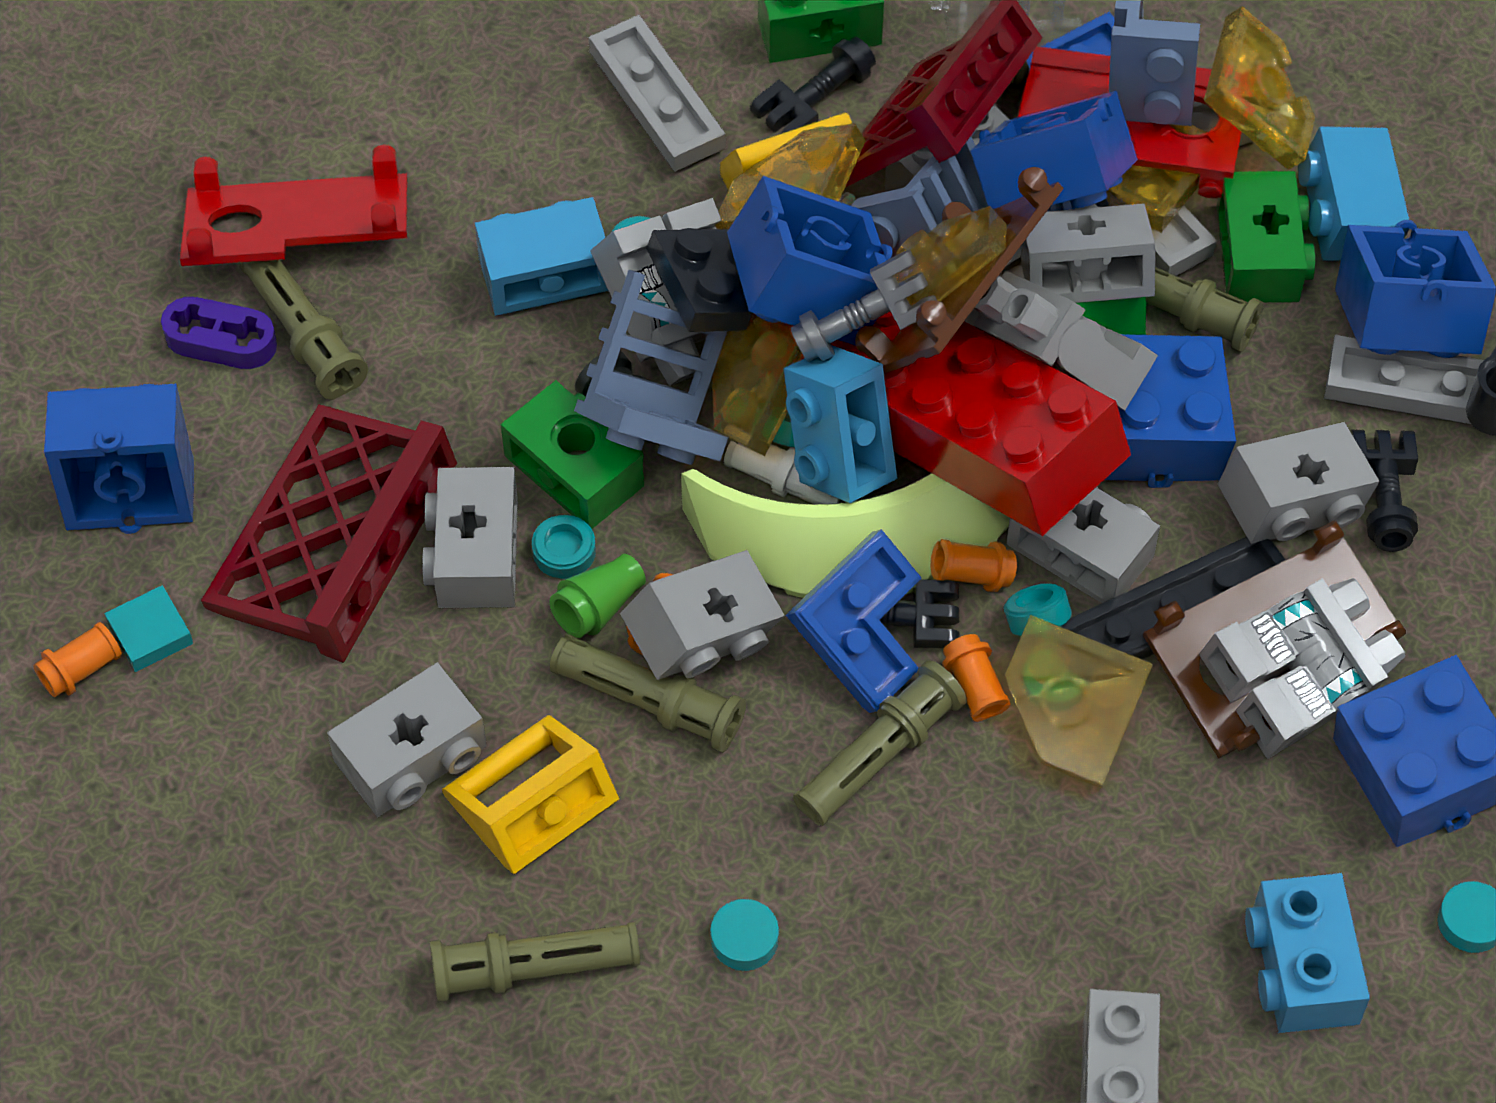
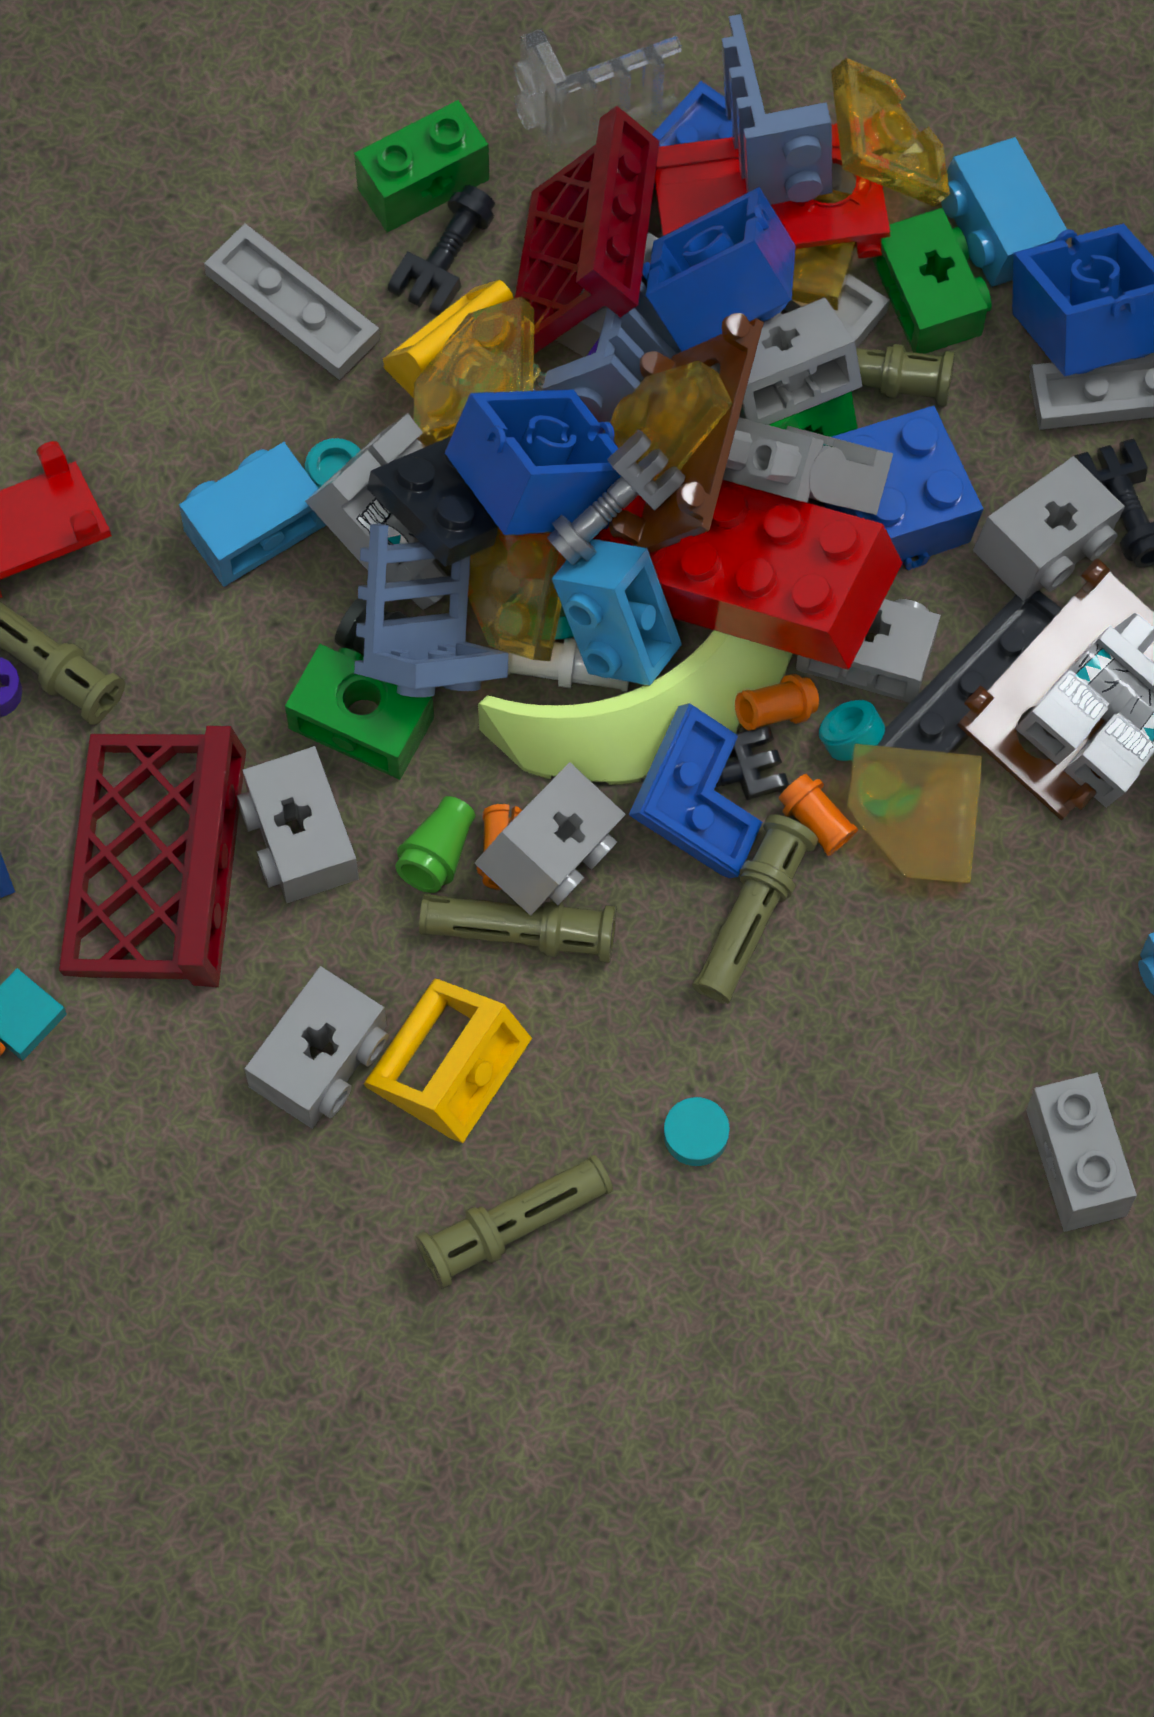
camera: 20 degrees left, 10 degrees up
(563, 546) = (383, 804): teal tile -> none

